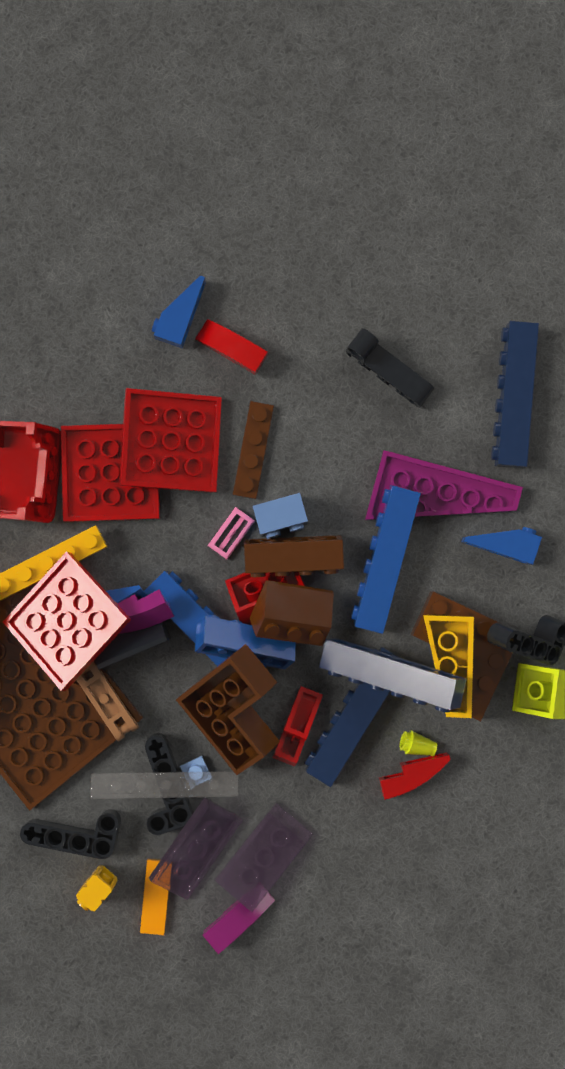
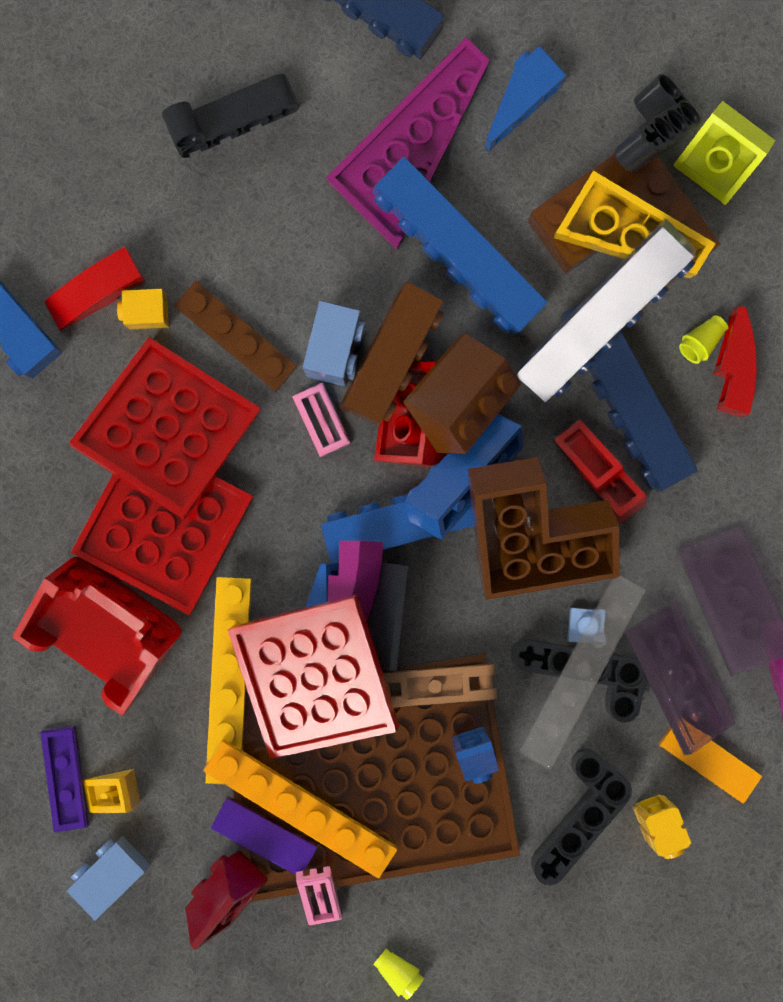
camera: 60 degrees left, 0 degrees up
(74, 747) = (475, 755): none -> blue slope
(237, 384) = (143, 309): none -> yellow brick

